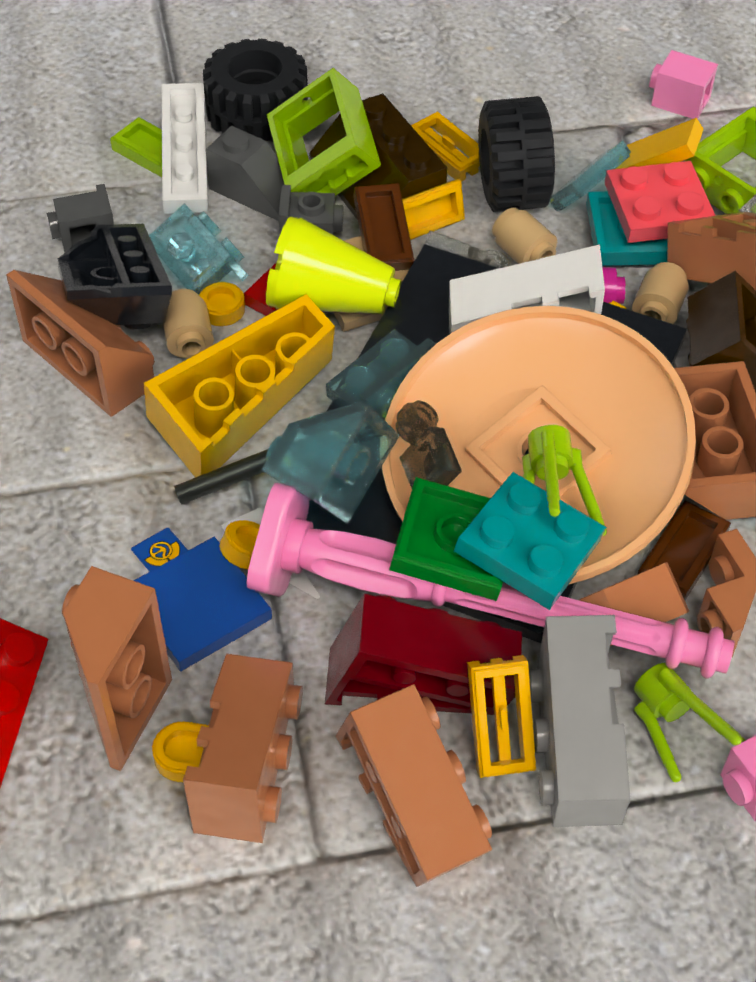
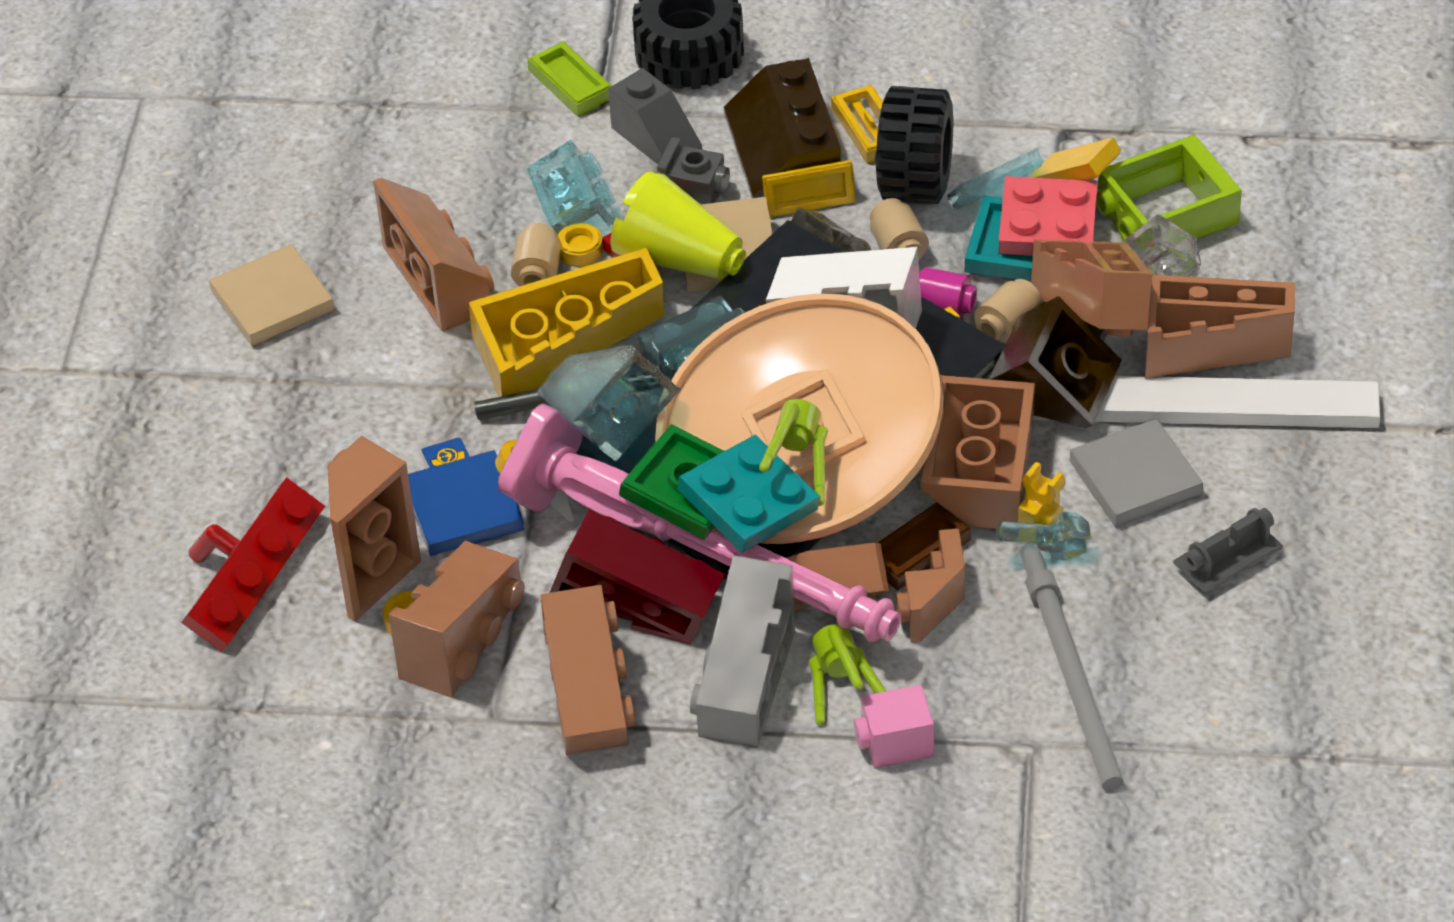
camera: 20 degrees right, 5 degrees down
(78, 215) = (472, 141): dark grey brick -> none
(117, 276) = (479, 199): black wedge -> none
(184, 147) = (593, 72): white plate -> none
(343, 161) = (744, 121): lime window -> none
(384, 224) = (754, 195): reddish brown tile -> none
(430, 450) = (695, 408): clear smoke plate -> none
(497, 670) = (682, 592): yellow tile -> none
(683, 84) = (1146, 97): bright pink brick -> none

